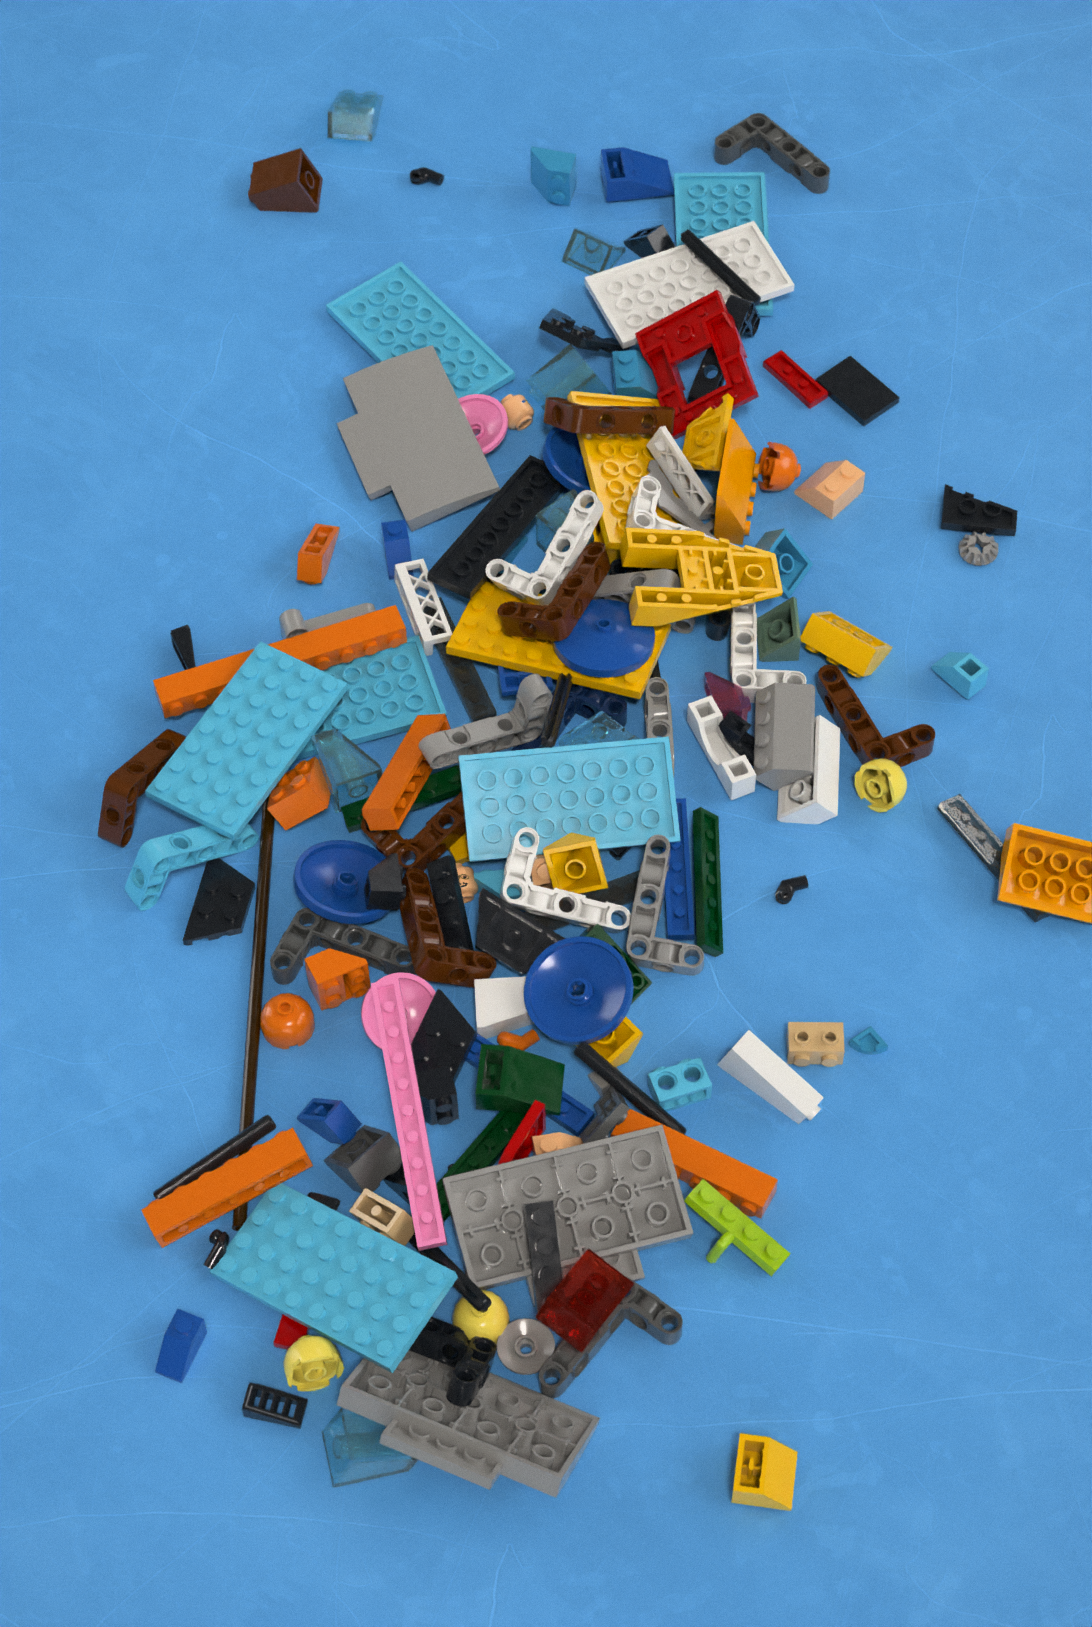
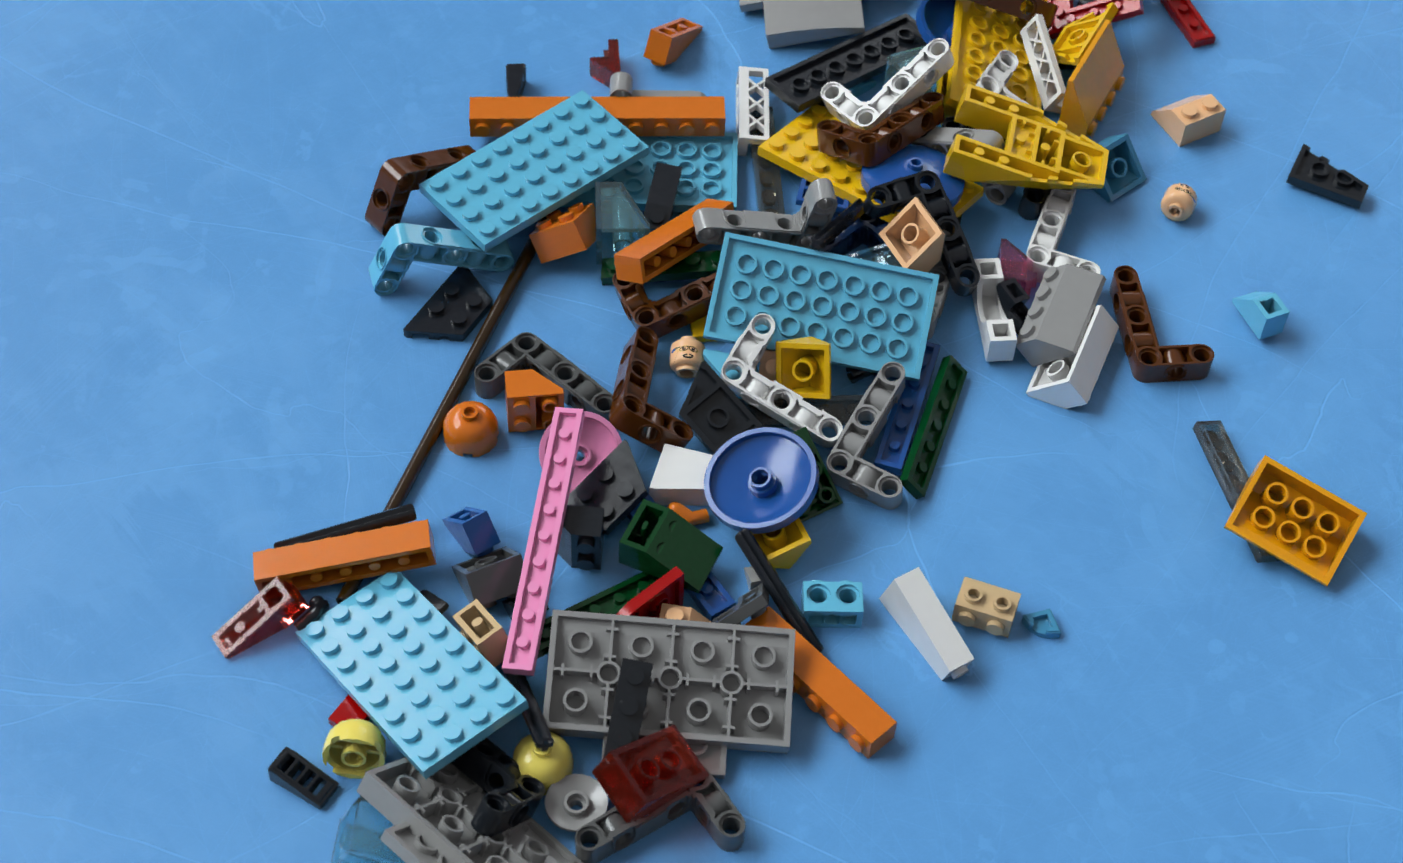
camera: 15 degrees right, 5 degrees down
(172, 1269) = (261, 617): none -> clear red slope
(180, 1345) = (237, 690): blue slope -> none
(267, 602) = (604, 67): none -> clear red slope
(333, 880) = (578, 322): blue dish -> none
(376, 728) = (662, 195): none -> black slope
(384, 885) = (611, 331): black slope -> none
(396, 545) = (748, 51): blue slope -> none
(449, 903) = (669, 367): black plate -> none
(630, 703) = (914, 237): none -> light nougat slope
(643, 672) = (956, 251): none -> black beam
(676, 506) = (1025, 87): light grey sword -> none
(735, 1229) = (835, 756): lime plate -> none
(778, 467) = (1142, 84): orange cylinder -> none
(779, 633) = (1089, 227): sand green slope -> none
(788, 887) = (1013, 456): black arm -> none
(844, 643) = (1151, 254): yellow slope -> none
(851, 581) = (1178, 202): none -> light nougat head
(857, 390) = (1245, 44): black tile -> none
(881, 784) = (1142, 387): light yellow cylinder -> none
(972, 554) = (1310, 214): light grey gear -> none

